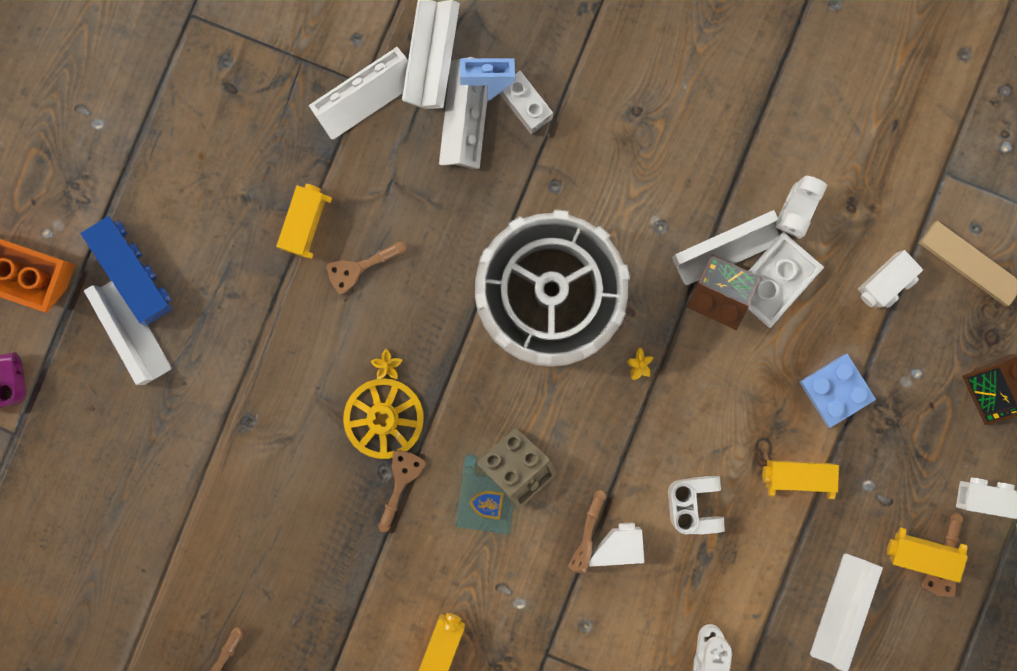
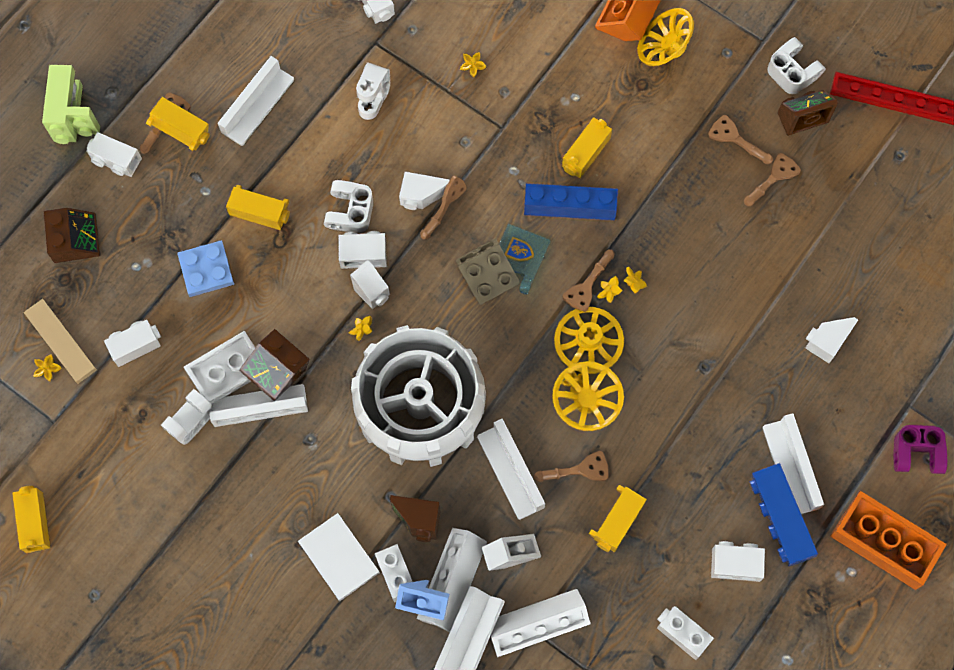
camera: 170 degrees left, 15 degrees down
(113, 485) = (829, 337): none -> white slope
(166, 207) = (738, 562): none -> white brick
(207, 119) = (684, 632): none -> white brick
(347, 500) = (634, 281): none -> yellow plant
(366, 346) = (587, 396): none -> yellow wheel
(373, 482) = (610, 289): none -> yellow plant
(409, 156) = (511, 551): none -> white slope
(432, 246) = (511, 470): none -> white panel
(442, 577) = (570, 201): none -> blue brick
(518, 162) = (418, 516): none -> reddish brown slope
(591, 106) = (338, 557): none -> white tile
(643, 412) = (370, 285): none -> white slope
(666, 456) = (358, 248): none -> white brick
(931, 58) = (31, 519): none -> yellow brick
(975, 230) = (46, 367): none -> yellow plant

